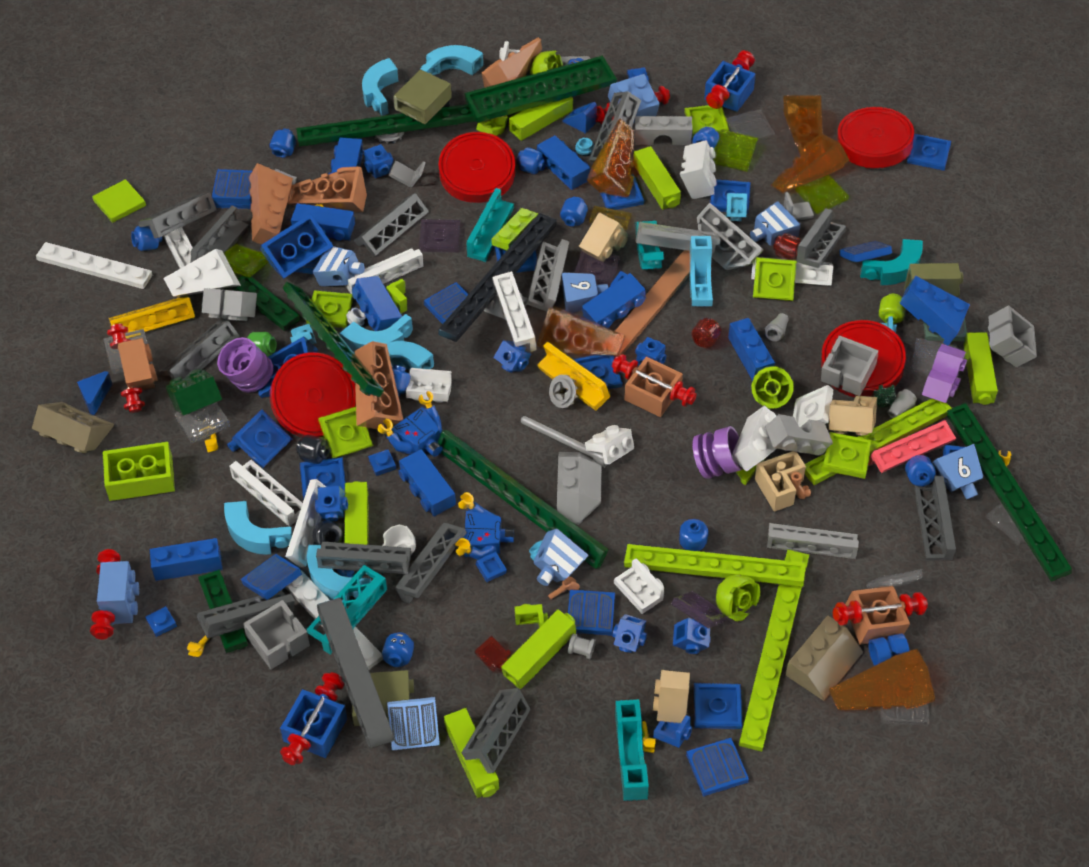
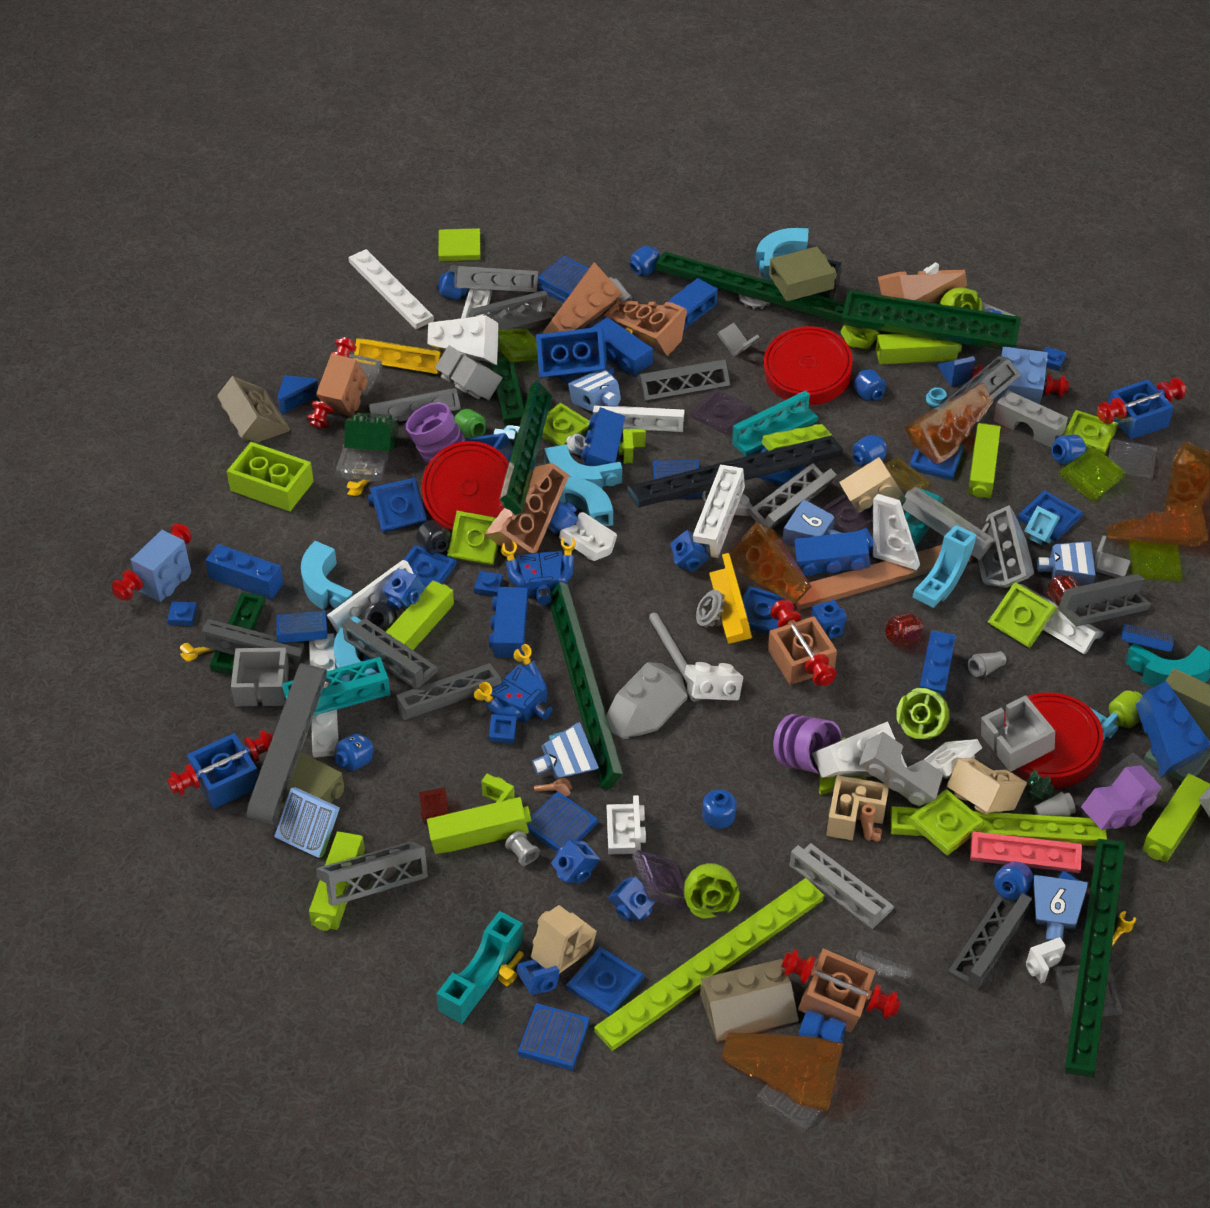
camera: 35 degrees right, 5 degrees down
(263, 494) = (359, 553): white fence -> none
(378, 161) = (717, 315): blue brick -> none
(399, 537) = (442, 656): white hair -> none
(453, 57) = (869, 255): medium azure arch -> none
(564, 162) = (900, 400): blue brick -> none
(651, 266) = (891, 533): none -> white wing
(699, 169) = (1032, 472): white wedge -> none
(716, 564) = (718, 850): lime plate -> none
(977, 514) = (1043, 957): none -> white bracket

